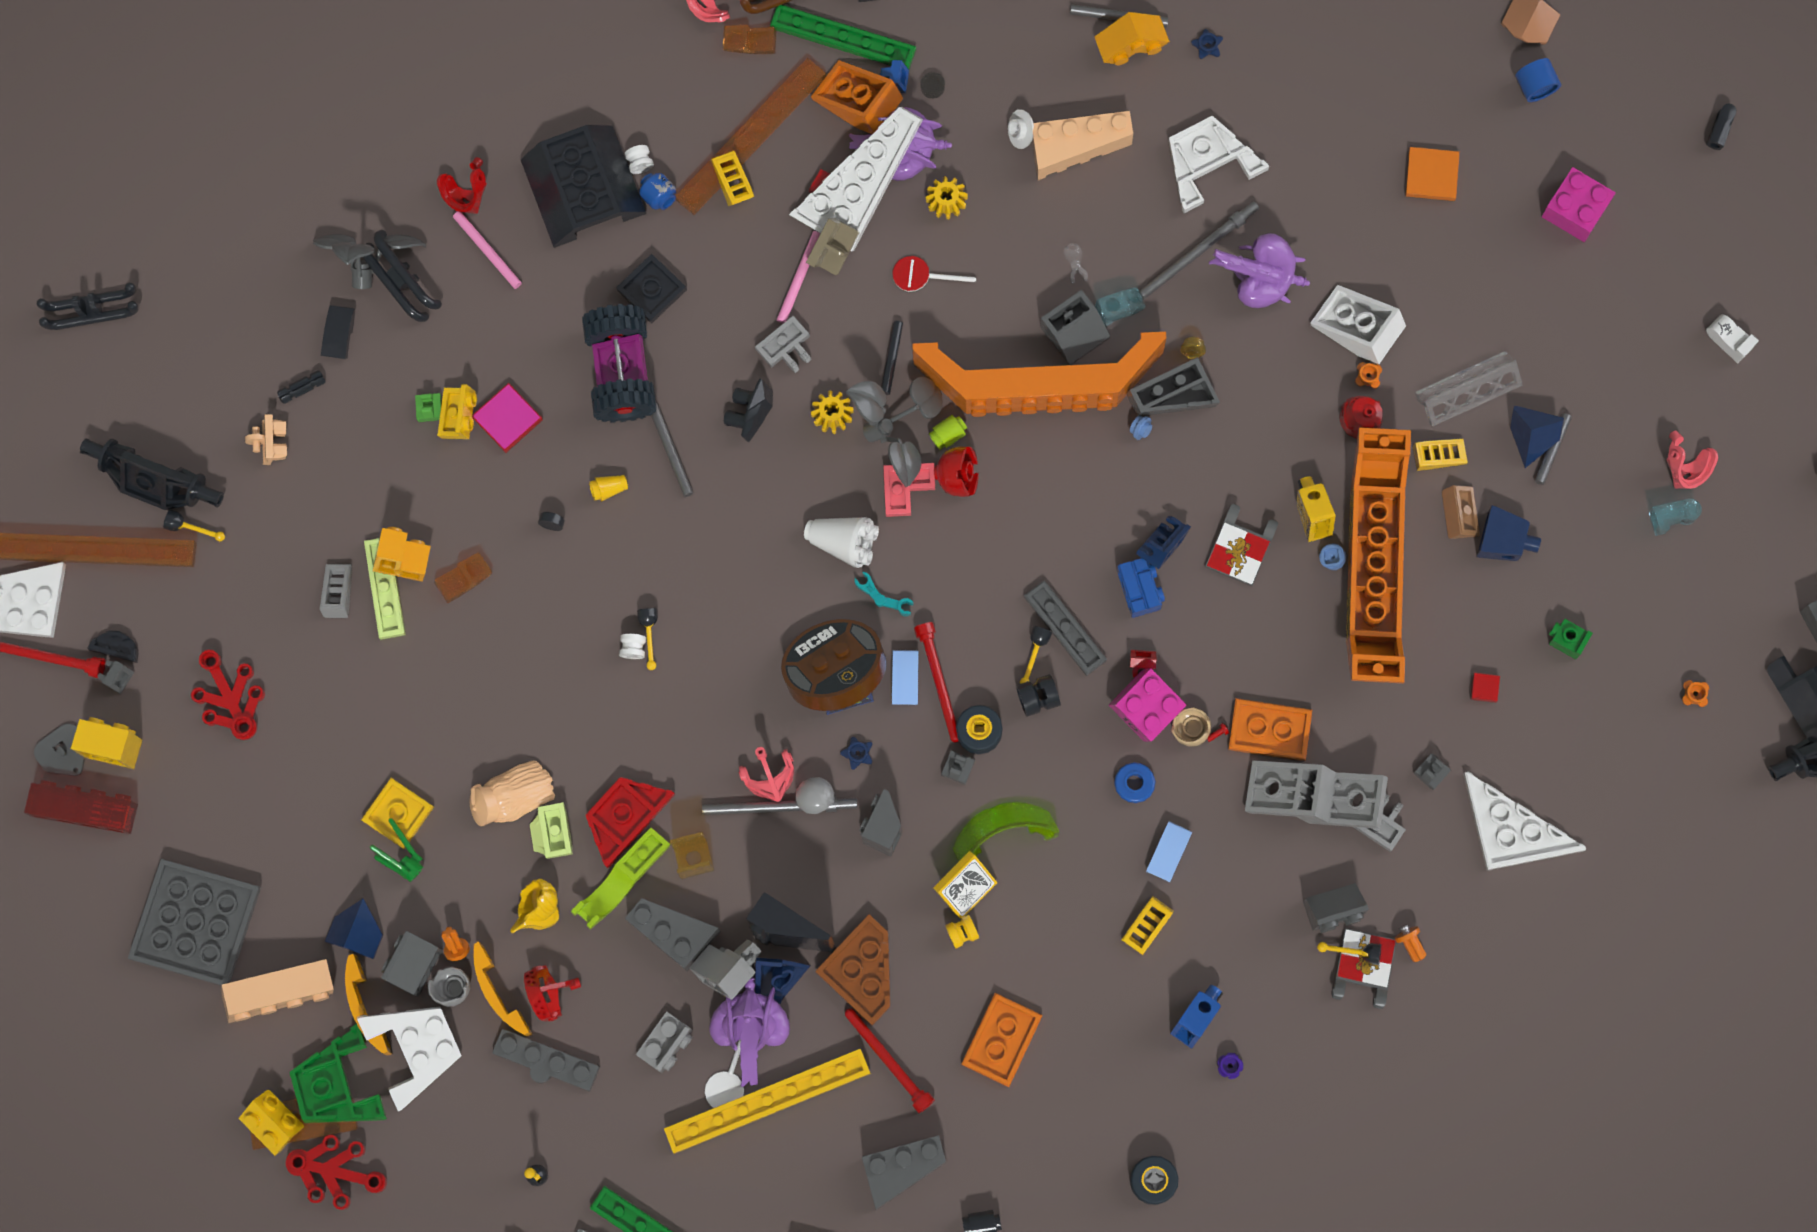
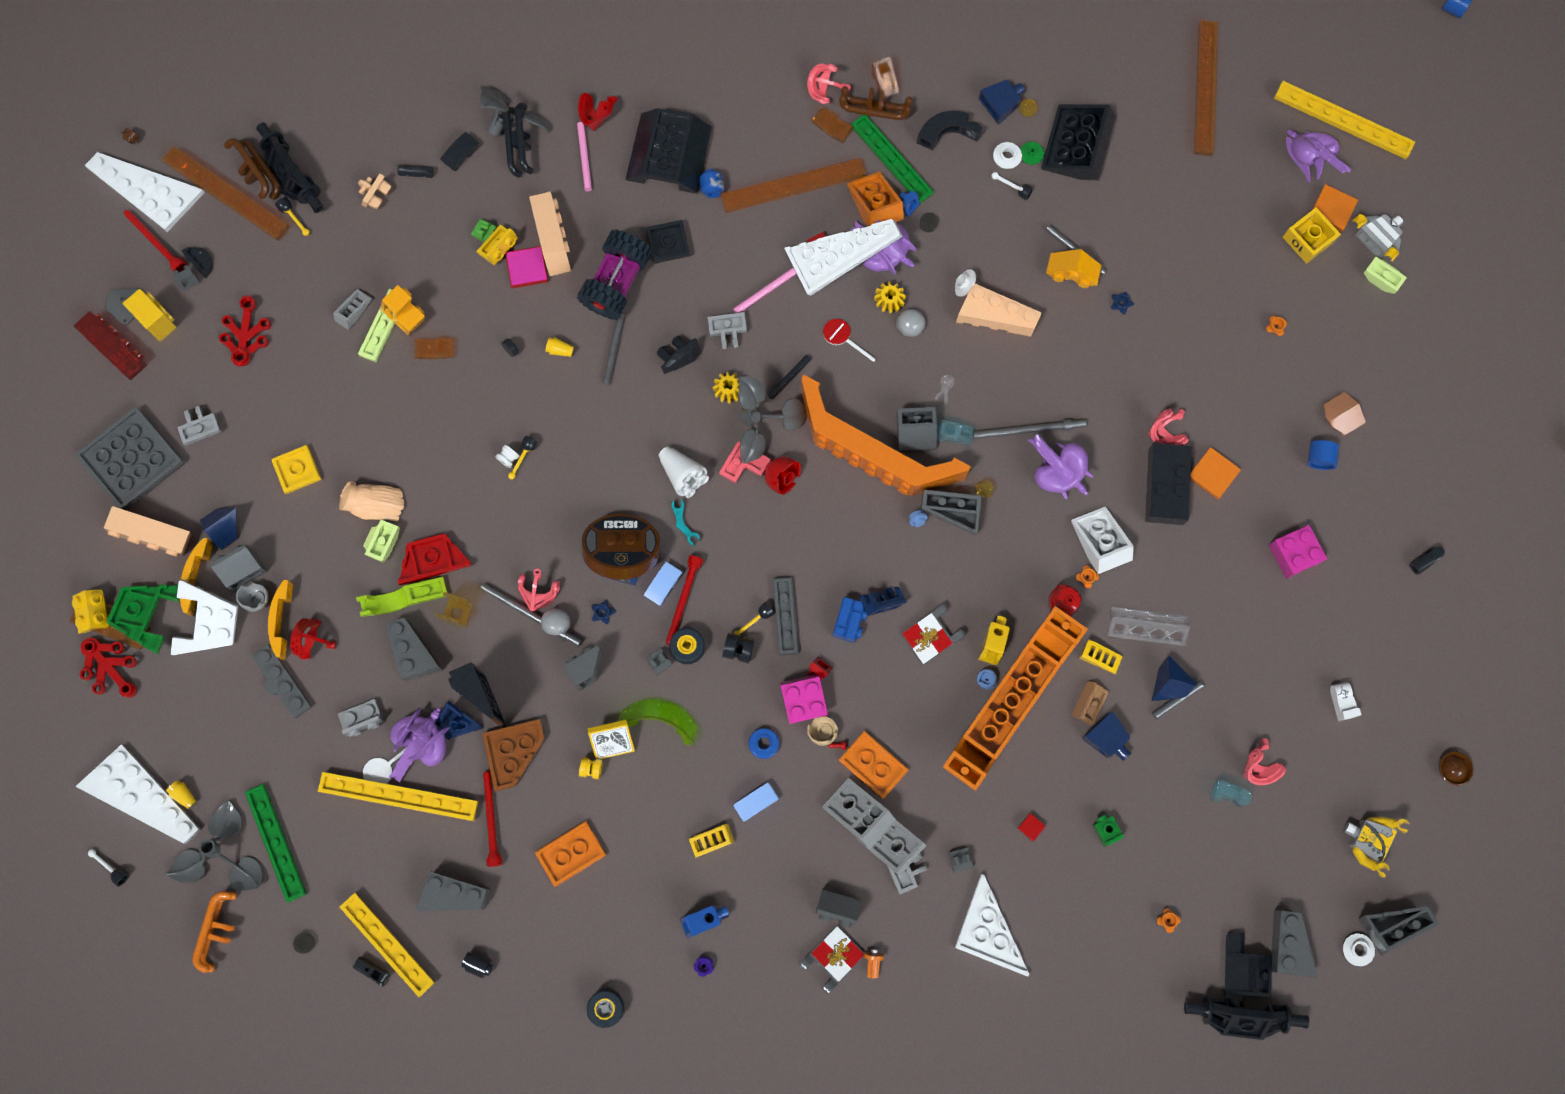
camera: 25 degrees right, 0 degrees up
(88, 308) = (321, 45): black piece -> none
(114, 496) = (254, 167): none -> reddish brown piece
(252, 838) = (198, 429): none -> light grey hinge
(407, 867) = (279, 506): green plant -> none
(456, 947) = (274, 574): orange piece -> none
(510, 361) = (550, 233): none -> light nougat wedge
(534, 1173) = (226, 747): black hinge -> none
(537, 906) = (339, 582): yellow hair -> none
(639, 159) = (713, 157): white wheel -> none
(725, 969) = (425, 696): light grey hinge -> none
(740, 175) = (754, 217): yellow slope -> none
(833, 246) = (797, 283): dark tan panel -> none
(948, 432) = (793, 445): lime brick -> none
(988, 212) = (910, 322): none -> light grey hair
(1204, 150) = (1076, 367): white wing -> none
(1360, 167) = (1158, 428): none -> coral helmet
(1371, 953) = (842, 953): hinge -> none
(1391, 216) = (1168, 484): none -> black brick

